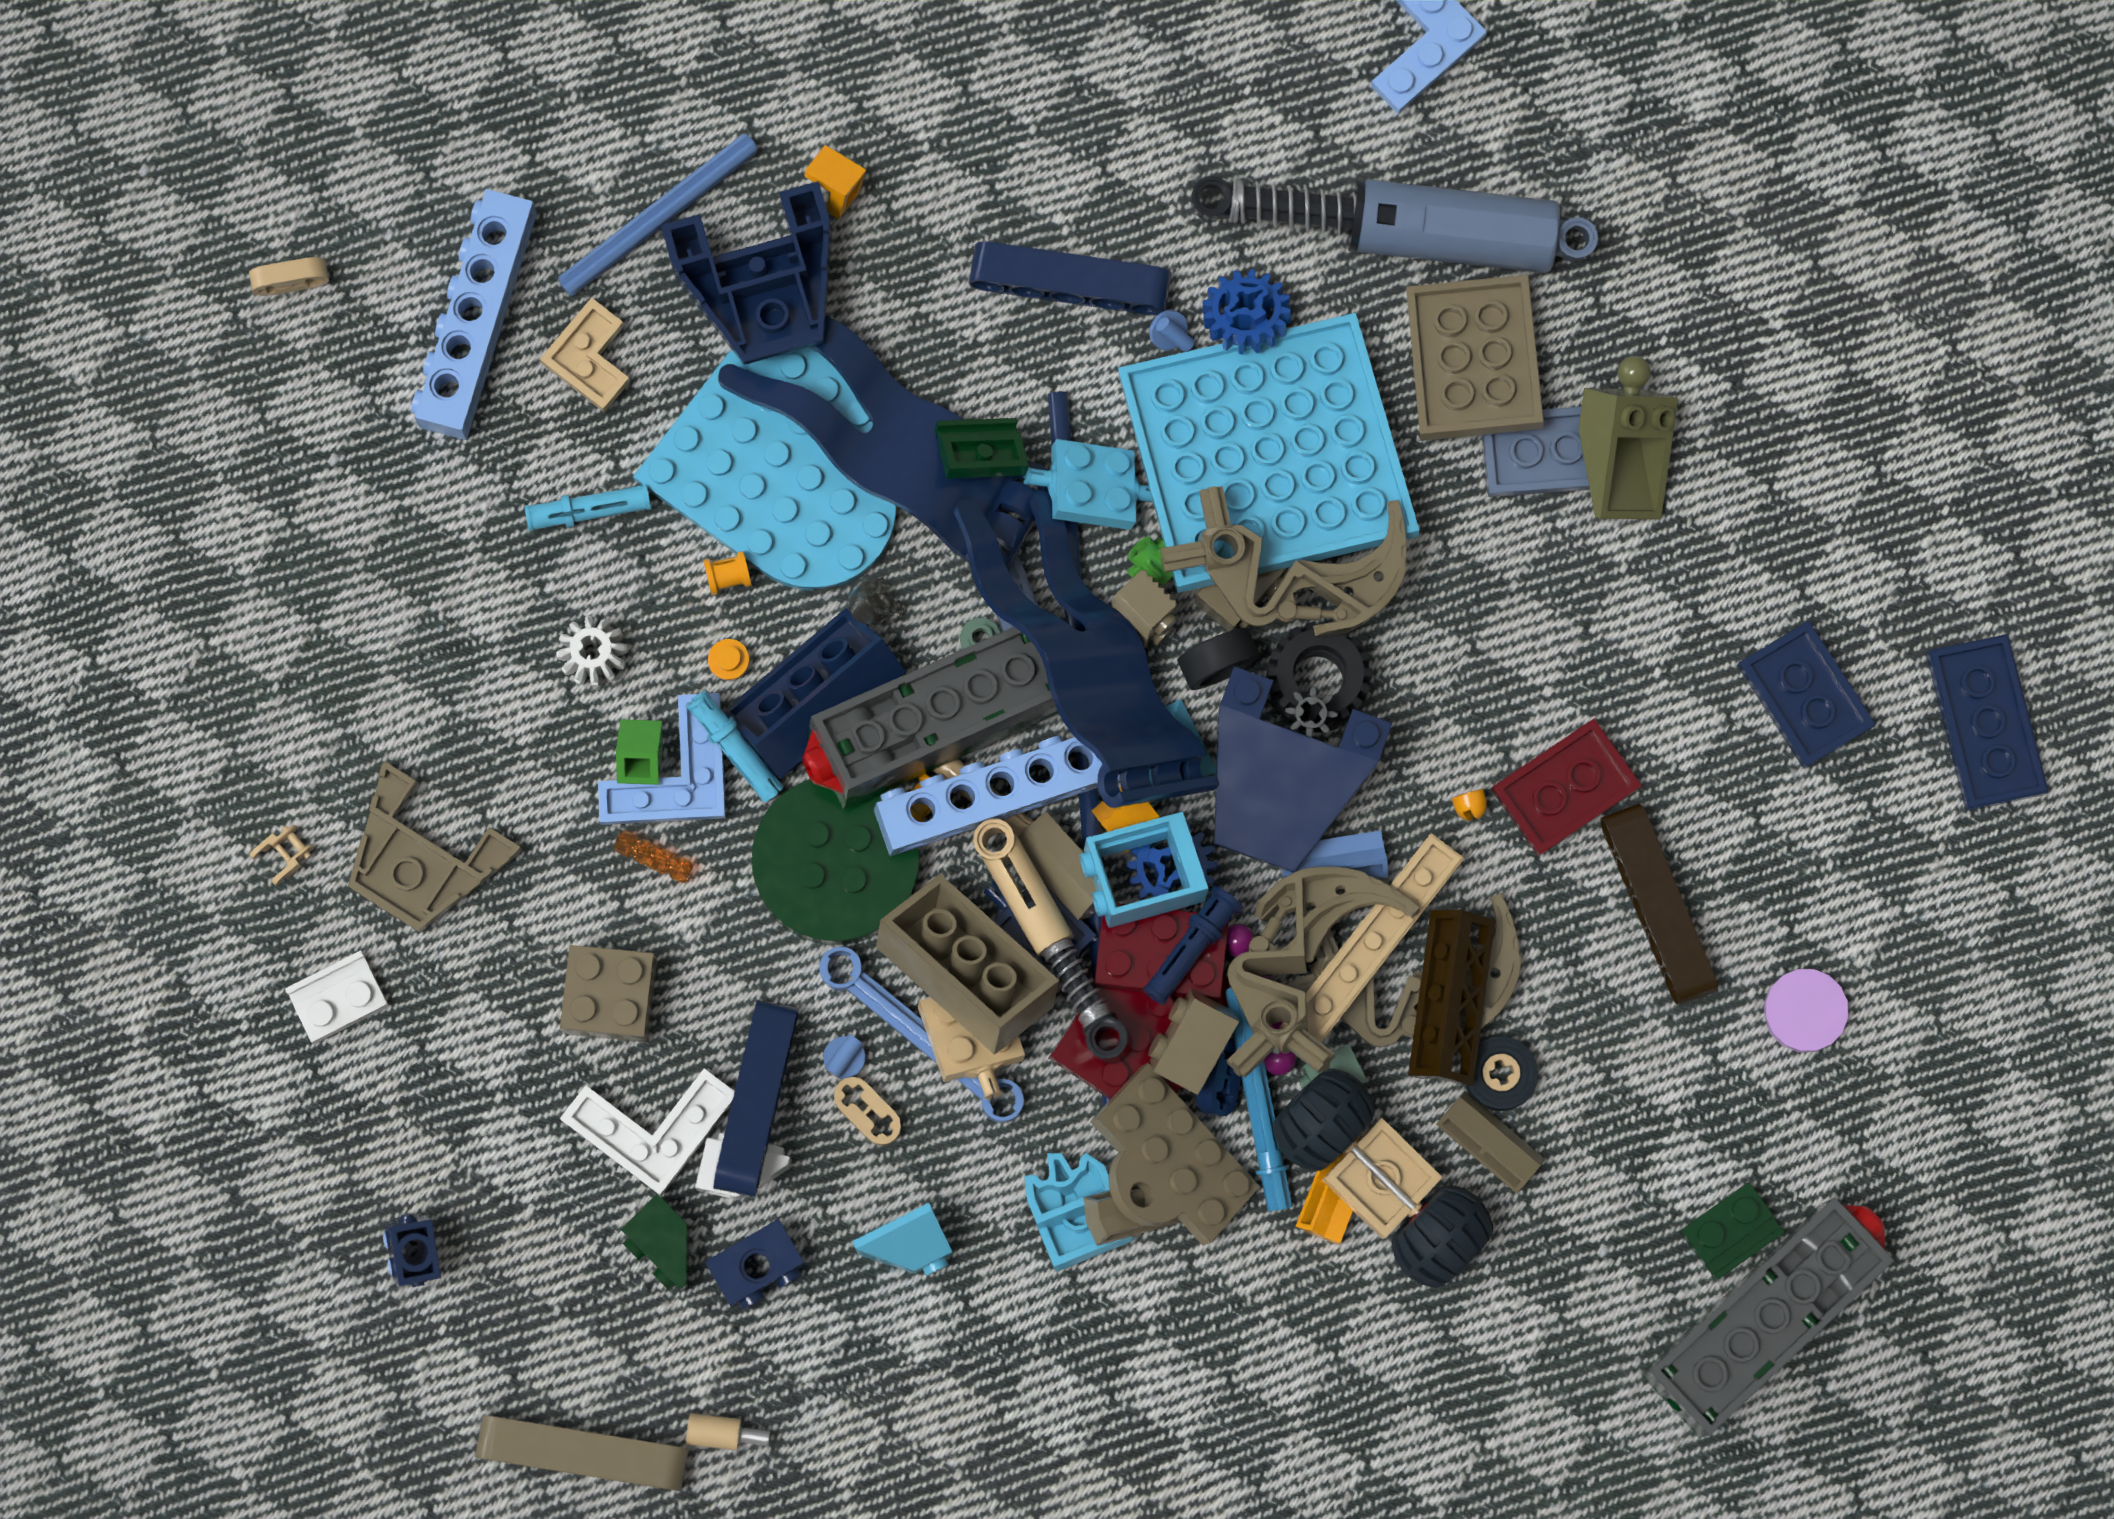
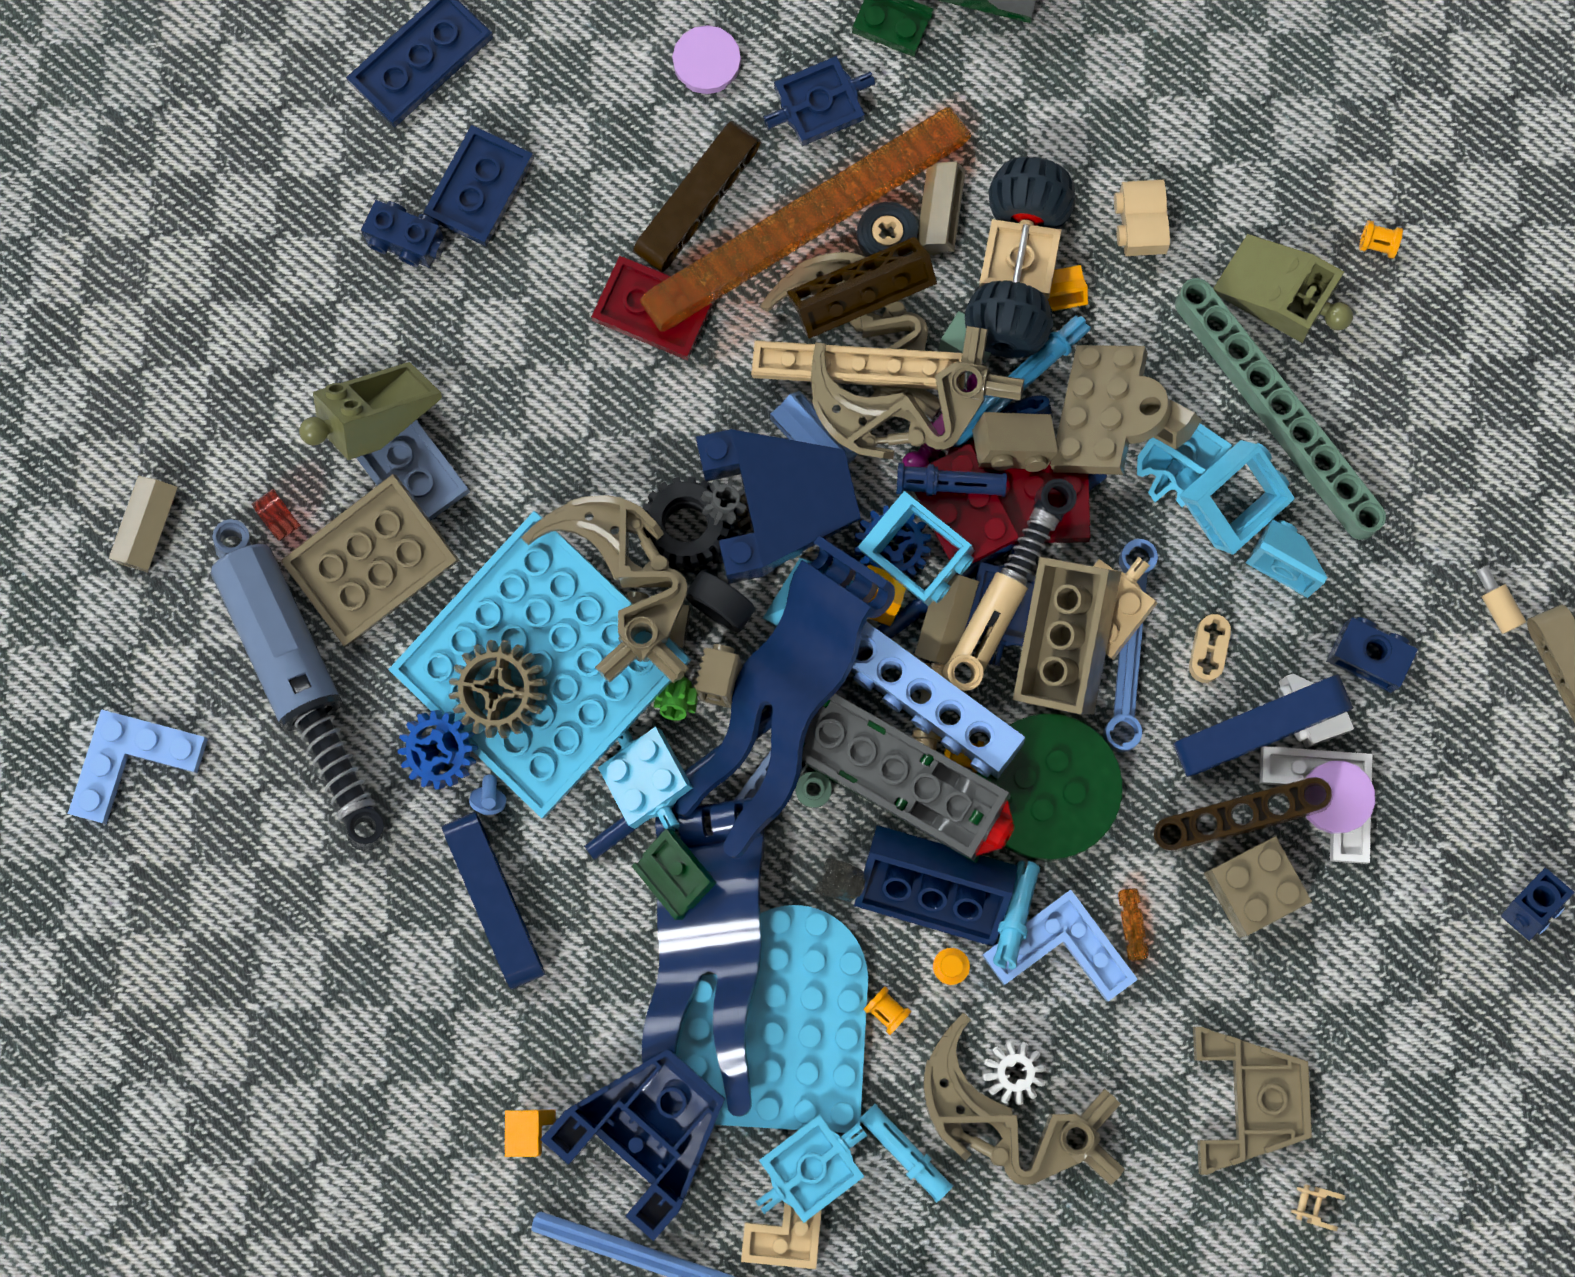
camera: 120 degrees left, 0 degrees up
(337, 997) = (1393, 1090): white plate -> none
(498, 642) = (1052, 1151): none -> dark tan piece
(630, 407) = (811, 1168): none -> medium azure plate
(639, 752) = (1067, 983): bright green brick -> none
(641, 1127) = (1351, 795): none -> lavender tile
(662, 1238) = (1401, 733): dark green slope -> none
(679, 1038) = (1261, 814): none -> dark brown beam
(844, 1057) = (1184, 689): medium blue plate -> none
(967, 1239) = (1209, 517): none -> medium azure window
(1083, 1338) = (1280, 426): none -> sand green beam
(1190, 1434) = (1280, 287): none -> olive slope
(1263, 373) = (493, 701): none -> dark tan gear
(1350, 1343) = (1143, 218): none -> tan brick
(1470, 804) = (707, 368): light orange hinge -> none
(1563, 997) = (804, 219): none -> clear orange beam
(1577, 297) = (276, 514): none -> clear red piece
(1649, 171) = (142, 523): none -> dark tan piece
(1687, 1094) = (819, 101): none -> dark blue plate
(1787, 596) = (411, 237): none -> dark blue brick

